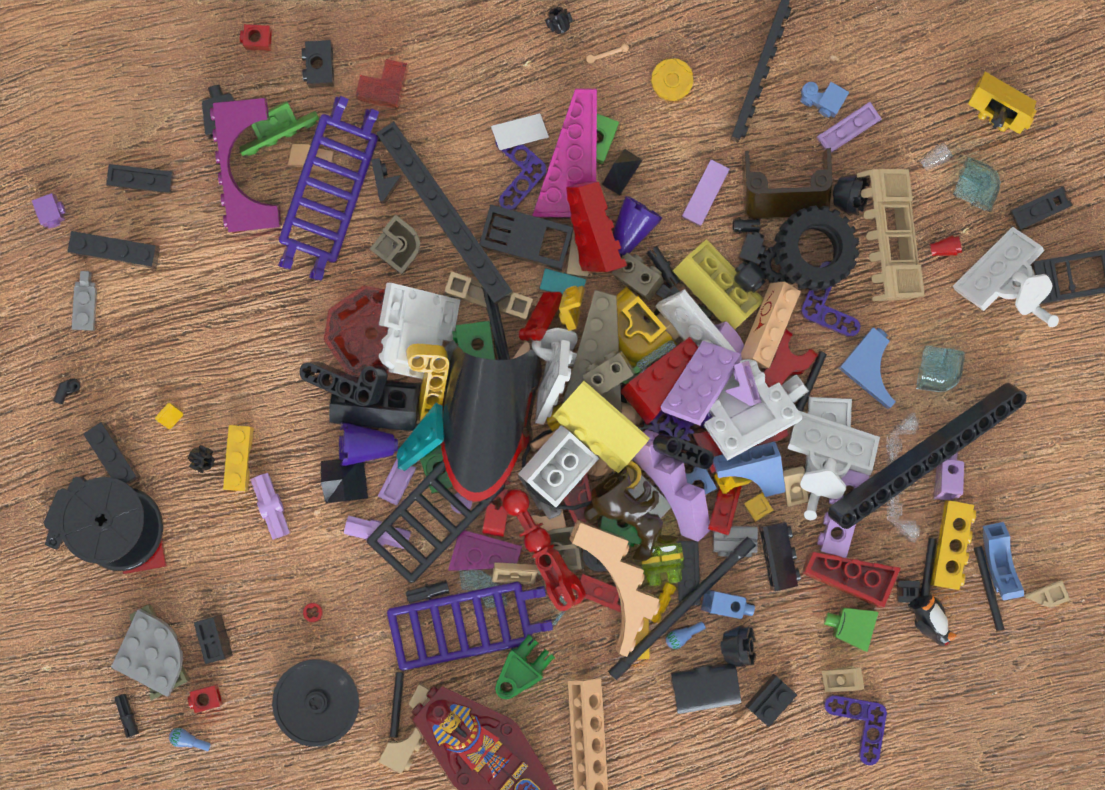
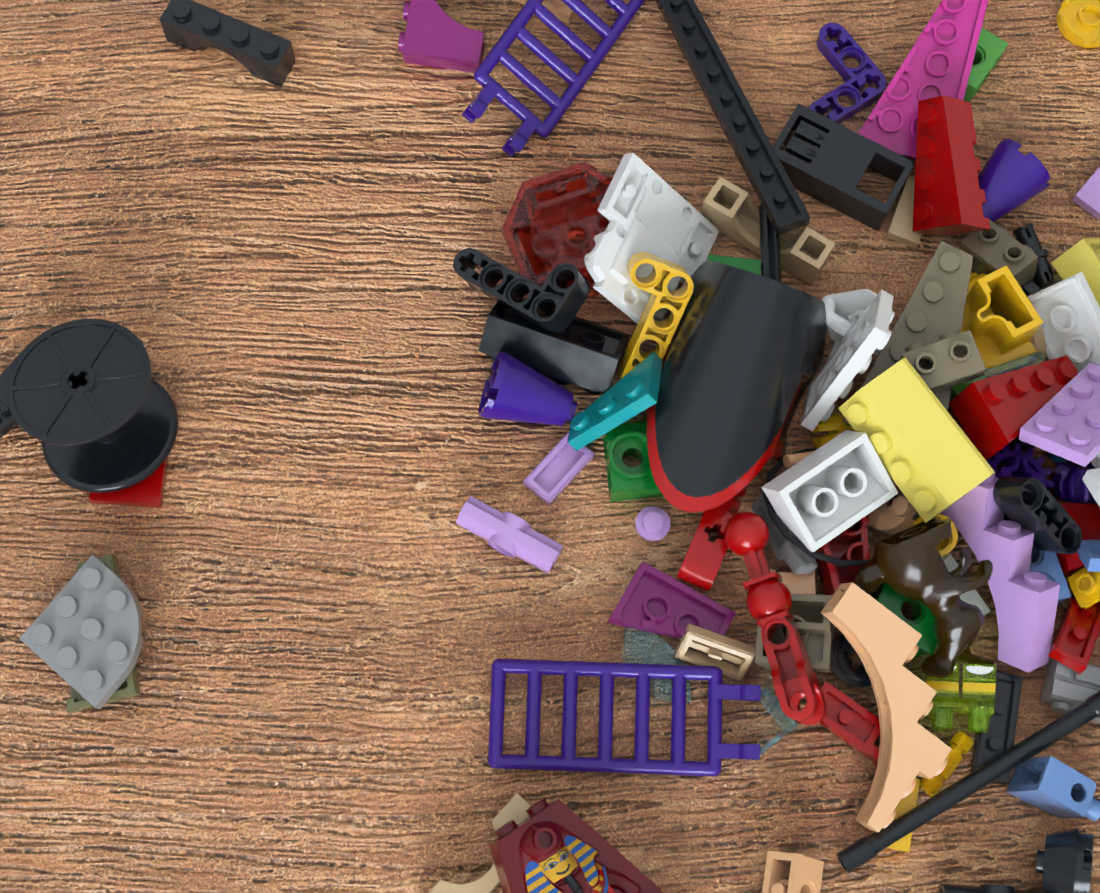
camera: 10 degrees right, 15 degrees down
(64, 388) = (92, 211): black arm -> none
(84, 303) = (161, 104): light grey hinge -> none
(109, 453) = (127, 306): black arch -> none
(126, 715) = (18, 726): black axle -> none
(169, 415) = (235, 284): yellow slope -> none
(181, 738) = (97, 787): medium blue piece -> none
(201, 459) = (265, 356): black gear -> none
(213, 639) = (199, 635): black hinge -> none
(214, 698) = (172, 733): red brick -> none
(237, 456) = (314, 385): yellow arch -> none
(270, 506) = (351, 454): lavender piece -> none
(313, 619) = (370, 647): red bush -> none
(315, 702) = (336, 781): black dish -> none
(343, 482) = (475, 447): black slope -> none
(384, 185) = (647, 48): black slope -> none
(396, 707) = (469, 822): black bar -> none
(397, 244) = (646, 127): dark tan brick -> none
(427, 591) = (566, 648): black axle -> none
(440, 547) = (605, 577): black bar -> none
(519, 131) = (857, 29): white sticker -> none
(520, 671) = (691, 812): green piece -> none
(541, 317) = (843, 274): red plate -> none
(559, 282) = (877, 247): teal tile -> none
(569, 306) = (885, 276): yellow bracket -> none
(622, 172) = (996, 117): black slope -> none
(677, 638) = (964, 828): medium blue piece -> none

